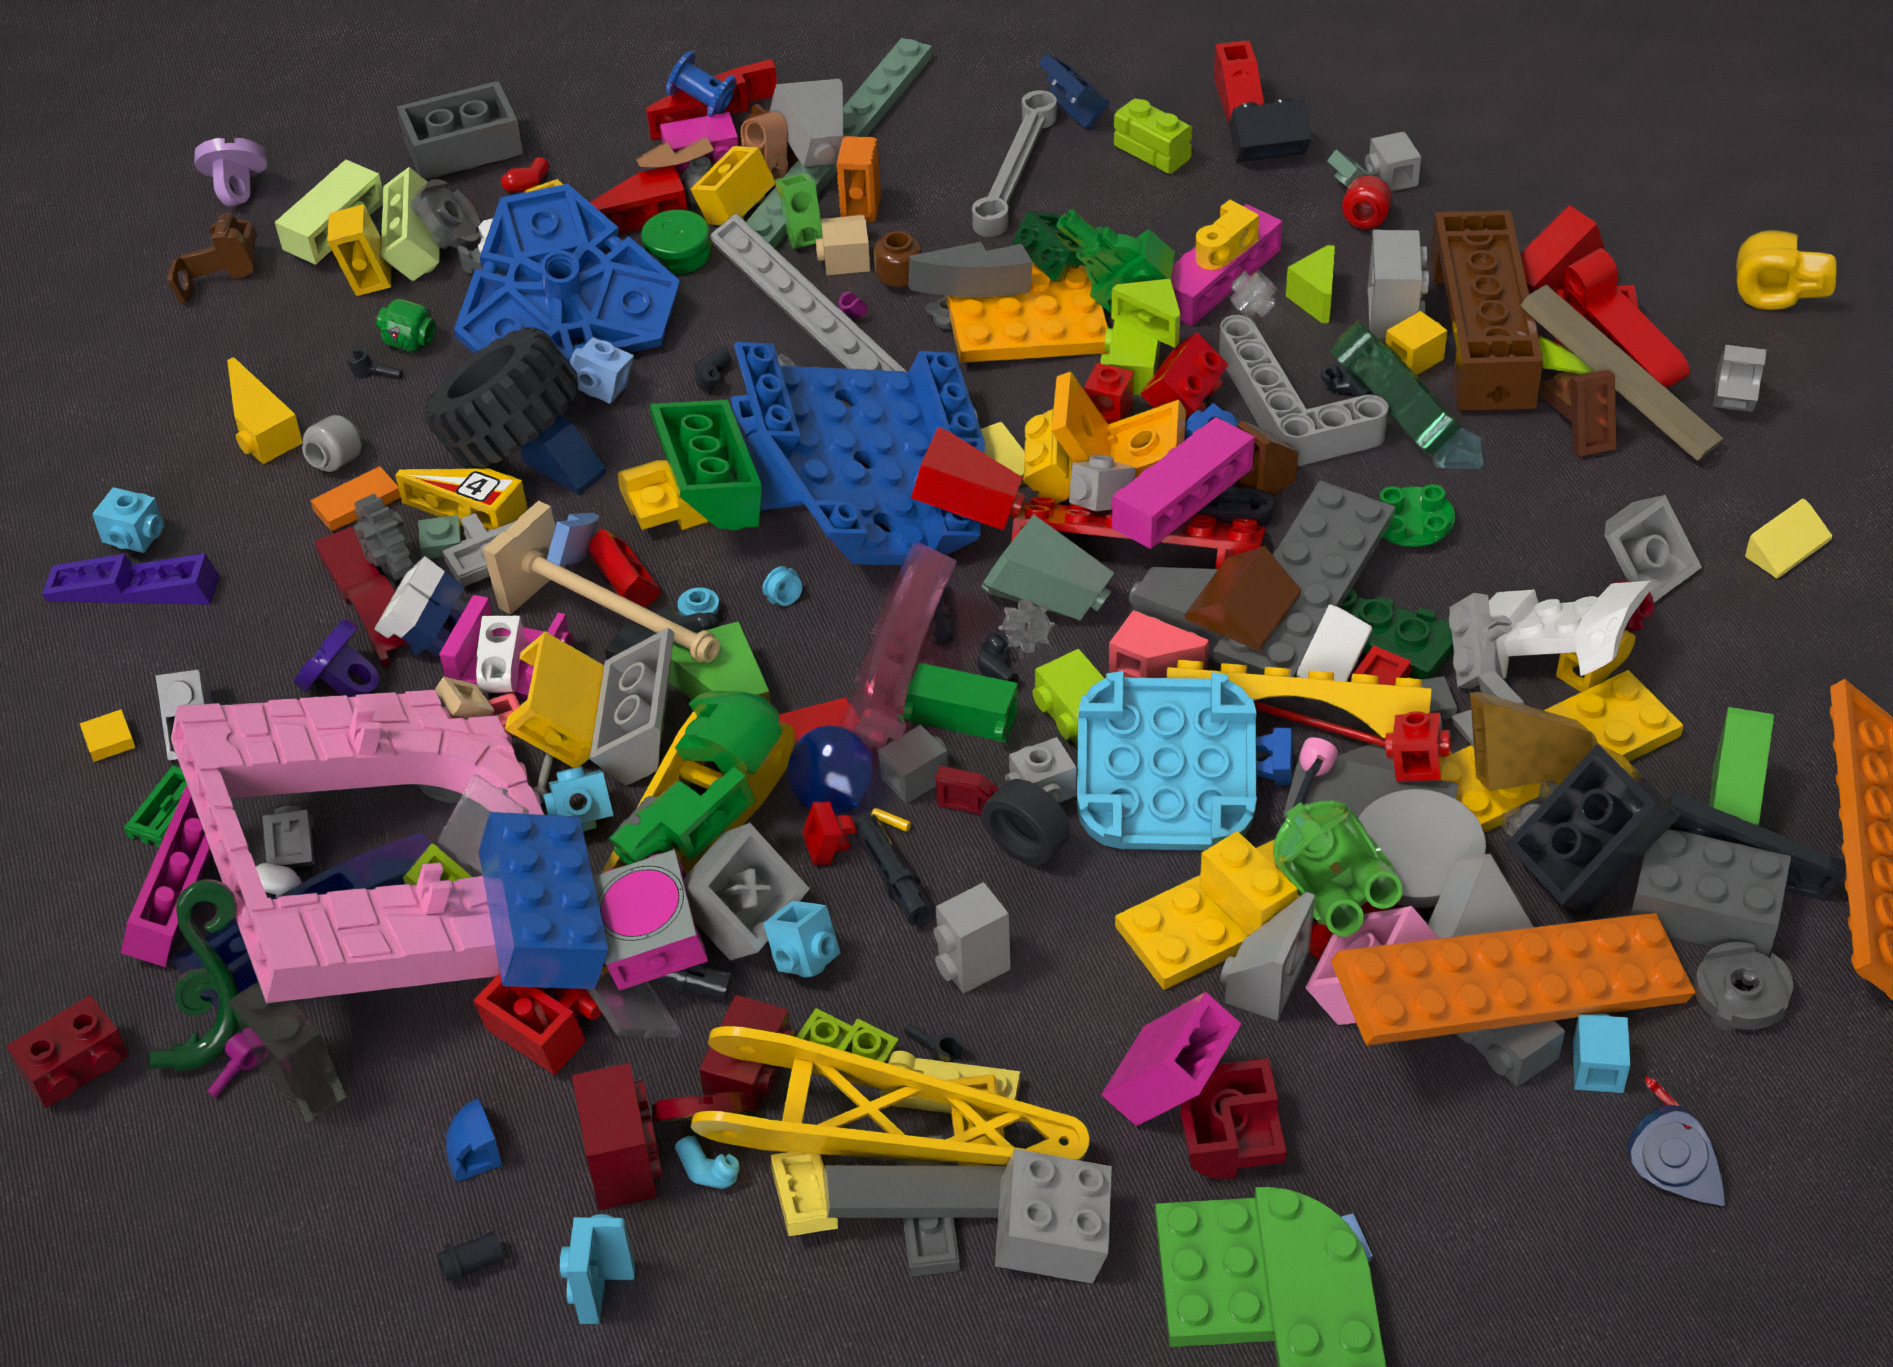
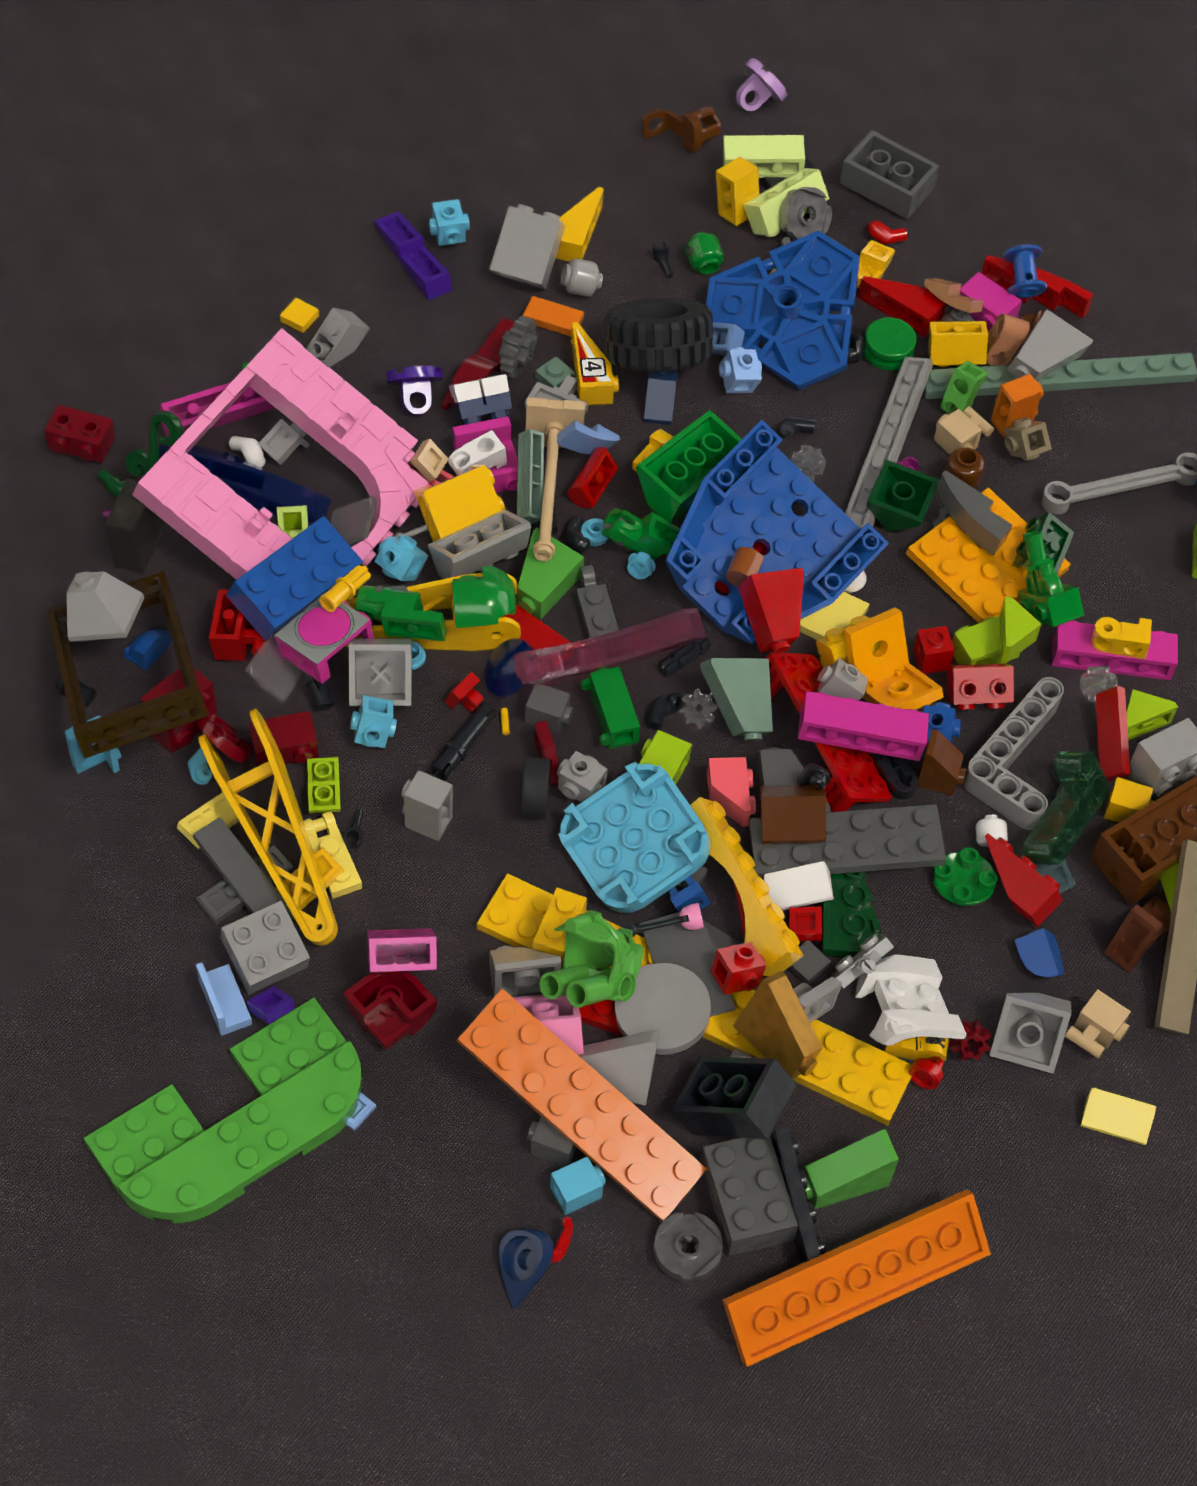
camera: 50 degrees right, 10 degrees up
(247, 459) = (527, 246): none -> light grey brick
(404, 1134) = (100, 607): none -> light grey slope
(582, 608) = (530, 475): none -> sand green piece
(606, 853) = (344, 588): none -> yellow axle
(641, 1186) = (144, 718): none -> dark brown door
(754, 554) = (647, 535): none -> green plate
(804, 656) = (595, 605): none -> dark grey plate
(888, 478) = (743, 564): none -> dark orange brick
(895, 320) = (901, 496): none -> dark green slope
(904, 195) = (1027, 438): none -> dark tan brick
(1085, 1310) = (224, 998): none -> light blue panel
(1136, 1256) = (270, 1004): none -> dark purple plate
(1226, 544) = (813, 775): none -> black arm
(1321, 305) = (1113, 733): none -> red tile
(1370, 466) = (994, 826): none -> white piece
(1463, 469) = (1027, 890): none -> red slope
(1555, 500) = (1041, 953): none -> blue brick
(1643, 661) = (927, 1072): none -> red tile
(1679, 486) = (1100, 1022): none -> tan brick

